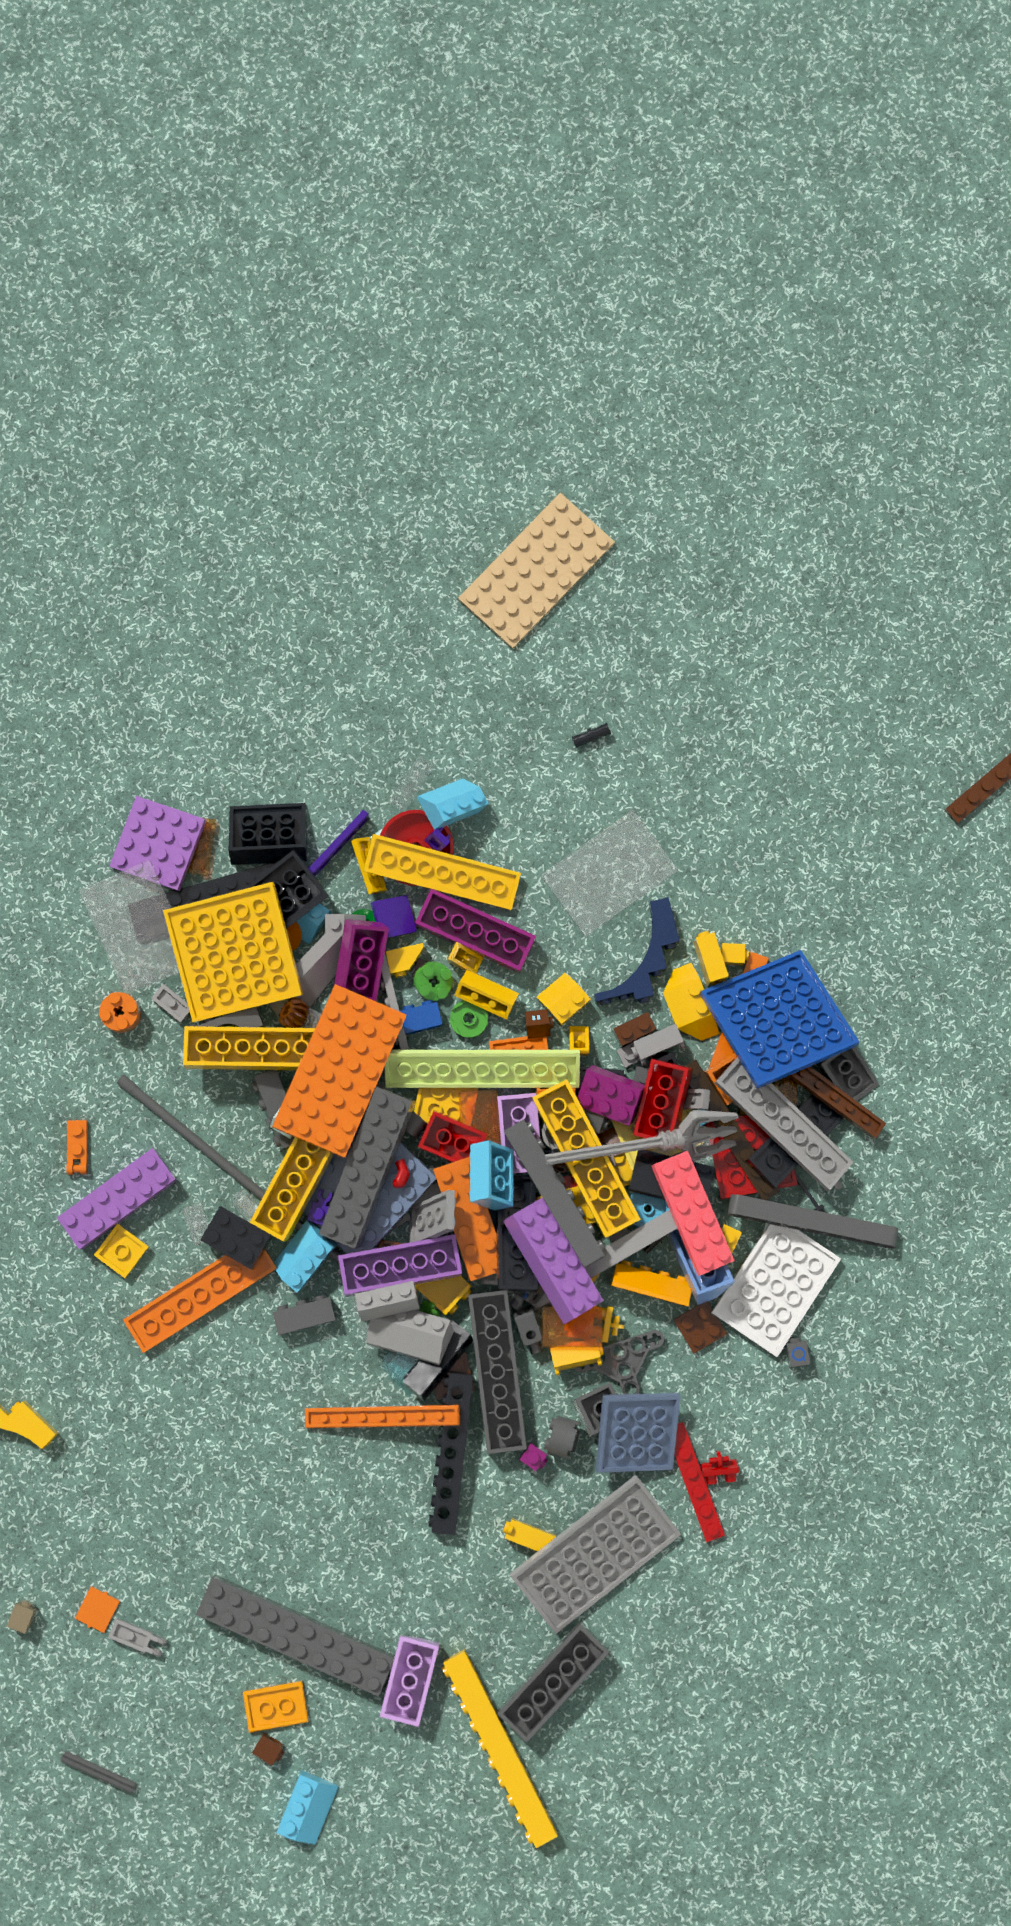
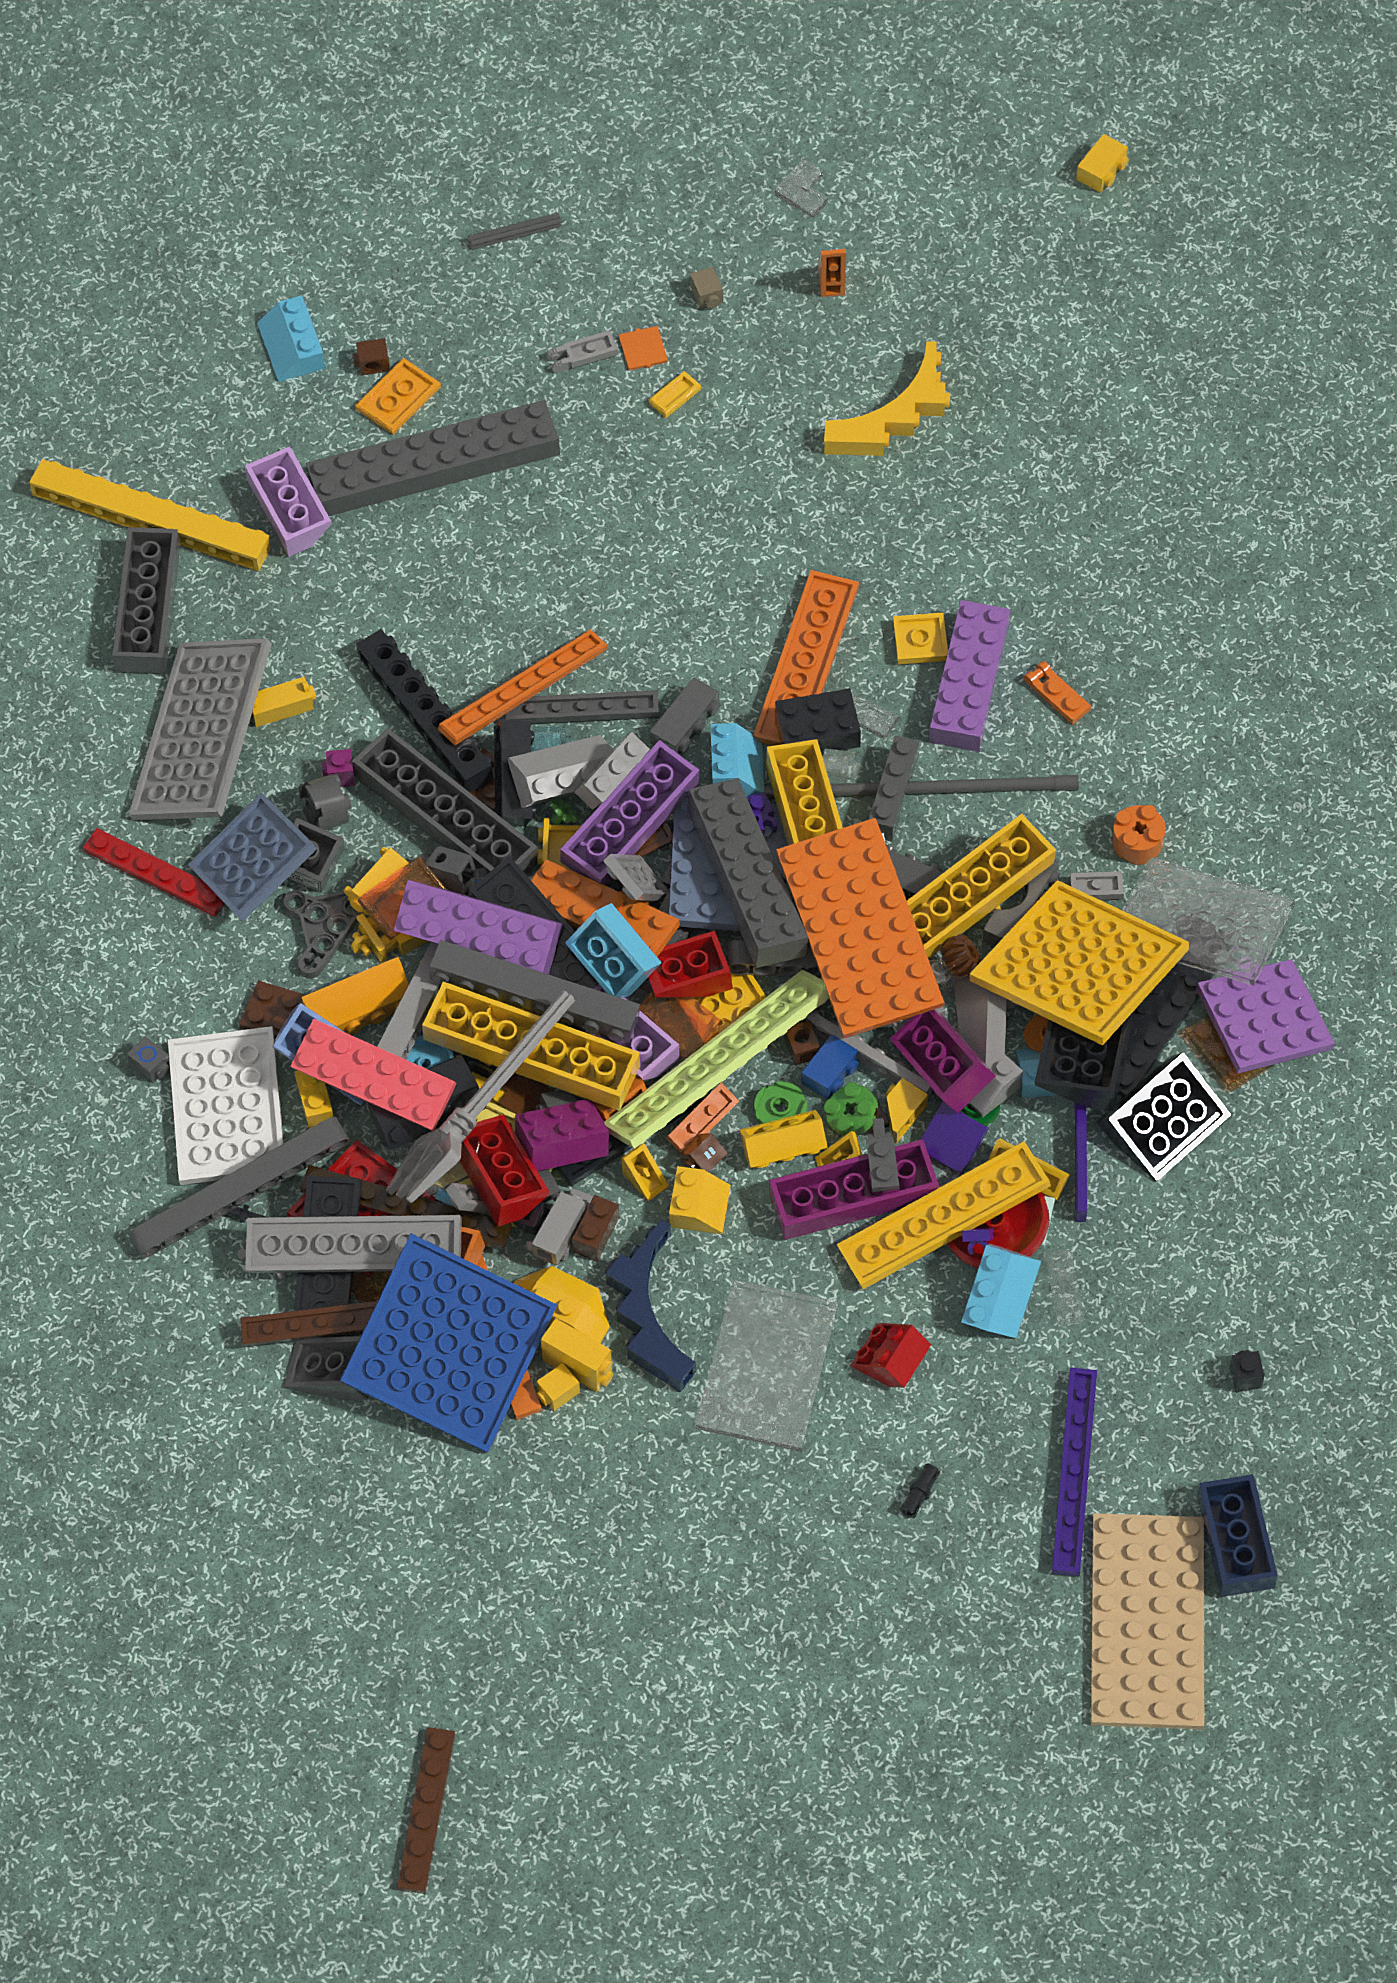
camera: 140 degrees right, 20 degrees down
(109, 1556) = (675, 394): none -> yellow tile
(227, 1162) = (893, 784): none -> dark grey arch
(352, 1373) = (587, 707): none -> dark grey plate
(362, 653) = (1247, 1371): none -> black brick
(403, 1174) = (705, 894): red arm -> none
(422, 1038) = (801, 1051): none -> reddish brown brick
(449, 928) = (882, 1158): none -> dark grey hinge
(452, 569) = (1237, 1535): none -> dark blue brick
(501, 678) = (1074, 1472): none -> dark purple plate
(539, 822) = (891, 1353): none -> red slope
(720, 1466) = (140, 899): red hips -> none

